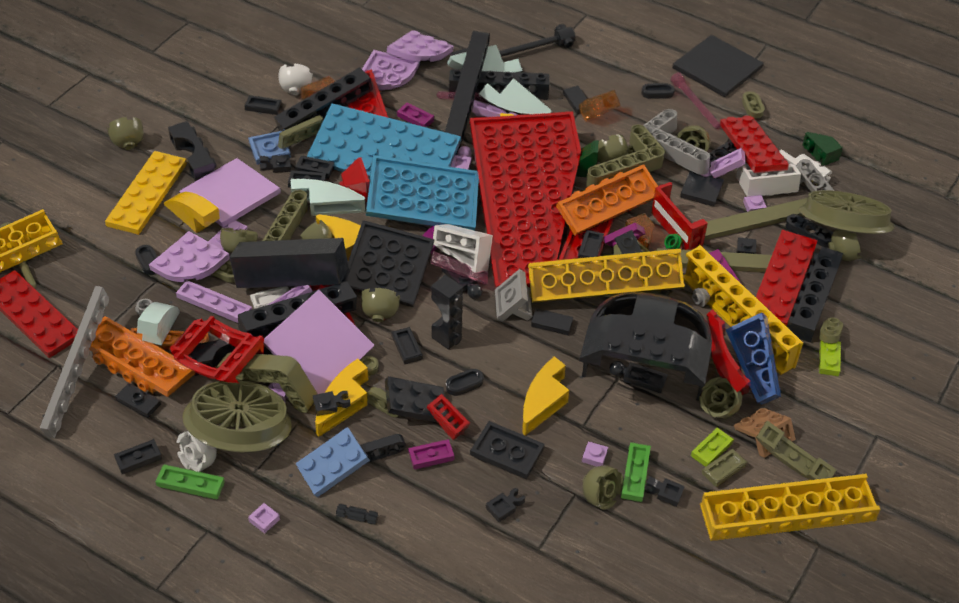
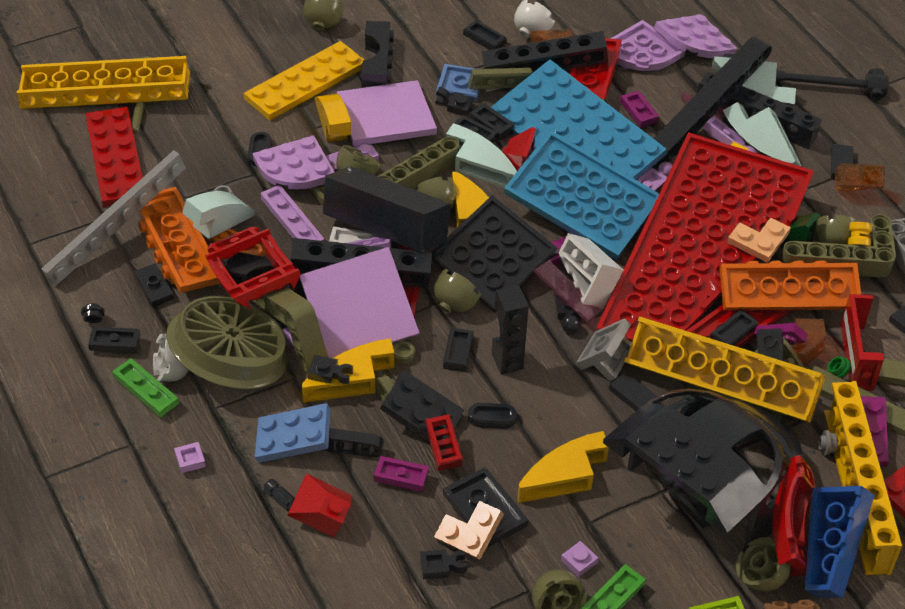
camera: 30 degrees right, 0 degrees up
(105, 444) = (92, 313): none -> black plate
(391, 505) = (320, 505): none -> red slope
(515, 474) = (474, 535): none -> light nougat plate
(571, 177) = (762, 243): none -> light nougat plate
(631, 143) = (860, 233): none -> yellow wheel

